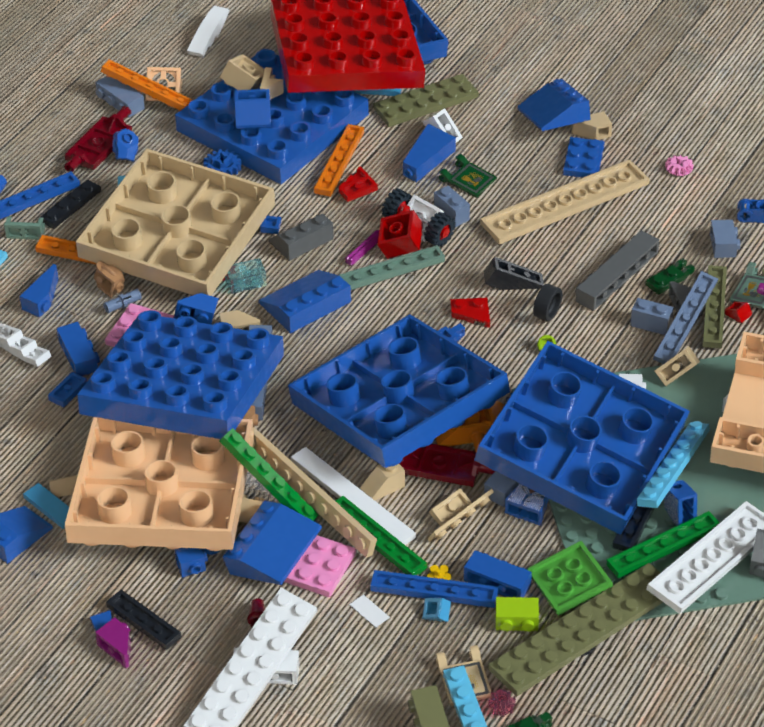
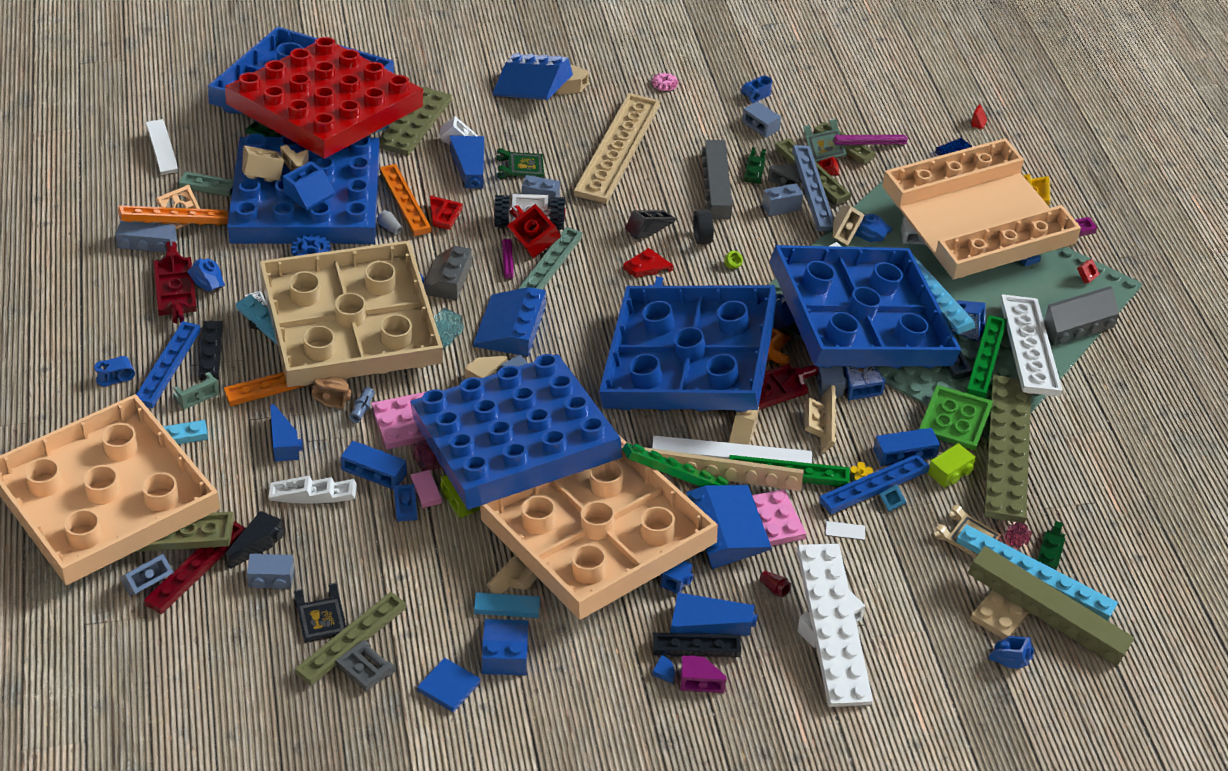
camera: 45 degrees left, 0 degrees up
(175, 605) = (712, 616): none -> blue slope
(197, 306) = (454, 371): blue slope -> none
(204, 72) = (207, 183): none -> sand green plate
(305, 170) = (389, 222): none -> light grey cone
(583, 157) = (589, 108): blue plate -> none
(702, 381) = (872, 228): none -> blue hand

